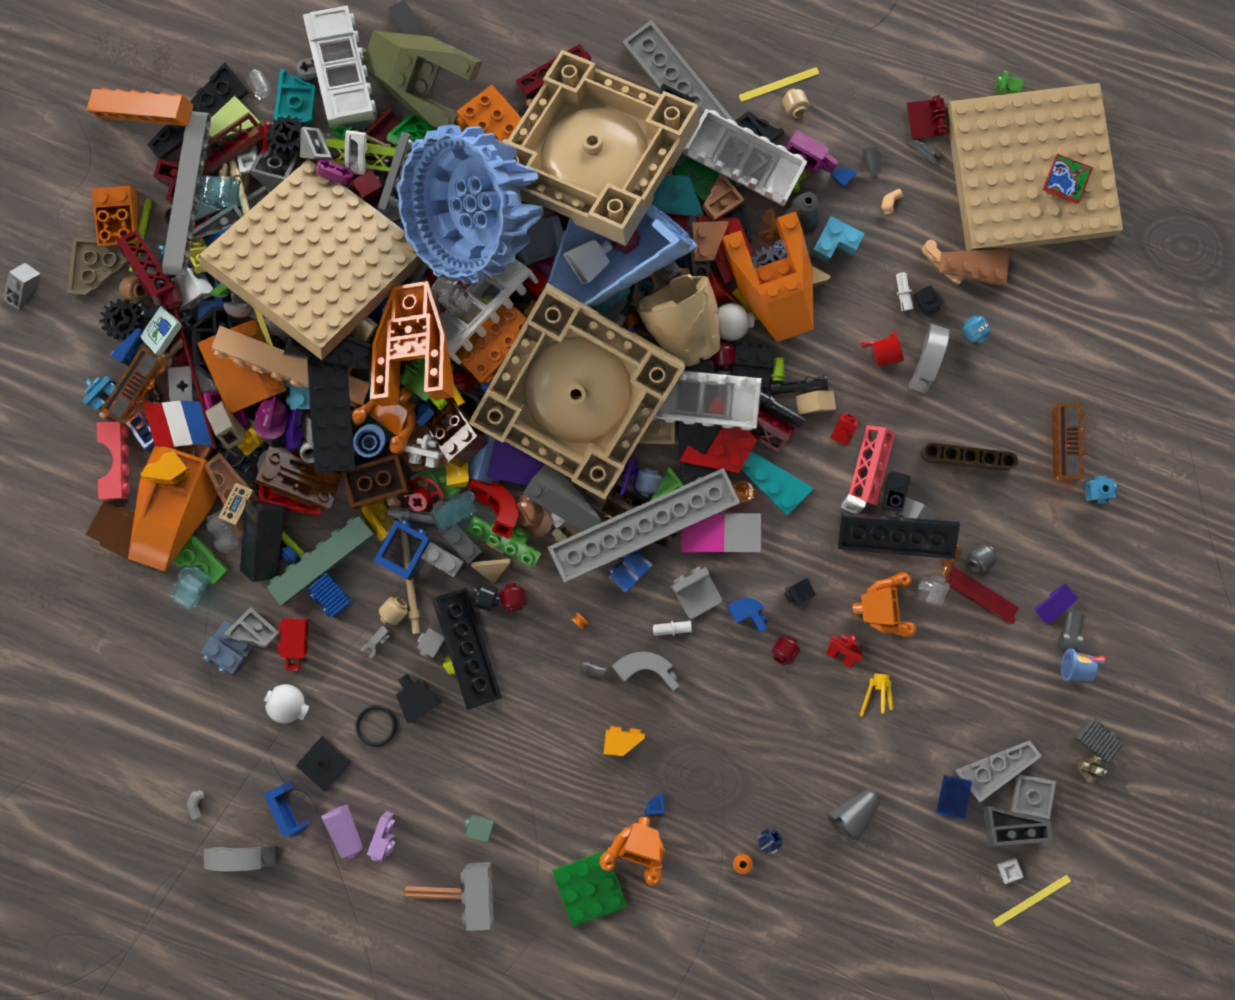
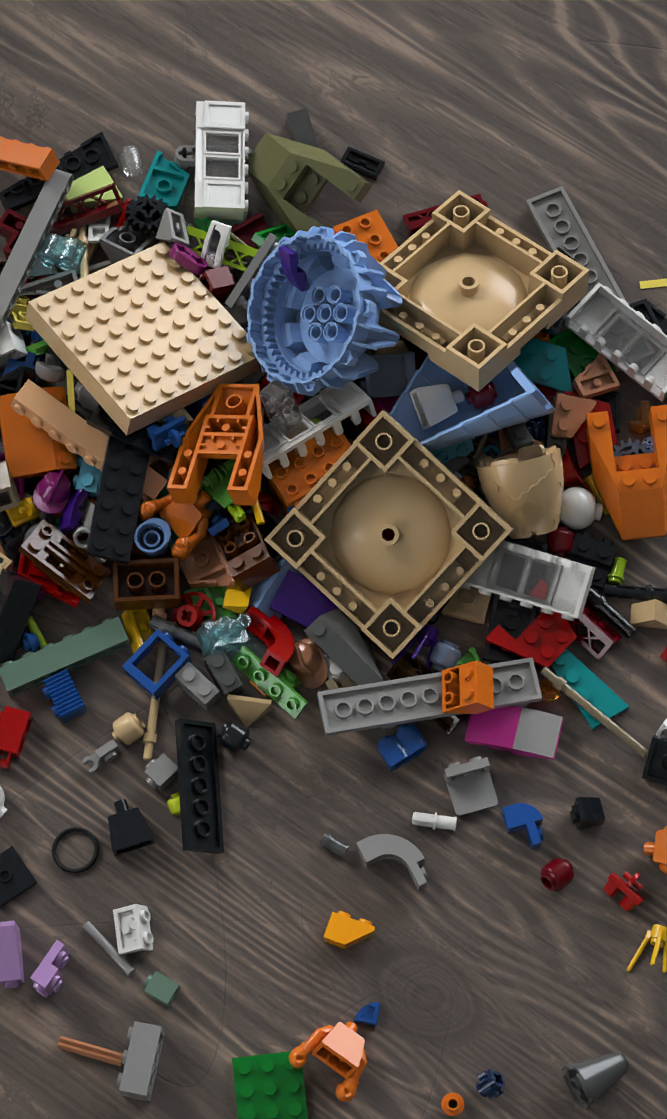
camera: 15 degrees right, 15 degrees down
(359, 346) = (169, 433): none -> blue hips
(417, 451) = (199, 563): white hips -> none
(425, 802) = (108, 948): none -> light grey bar
(428, 166) = (289, 262): none -> dark purple slope
(442, 783) = (133, 929): none -> white bracket
(458, 43) = (346, 159): none -> black tile
(513, 597) = (264, 745): dark red head -> none
(580, 621) = (333, 788): orange bush -> none
(676, 513) = (468, 688): none -> orange slope
(753, 485) = (561, 684): none -> dark tan bar

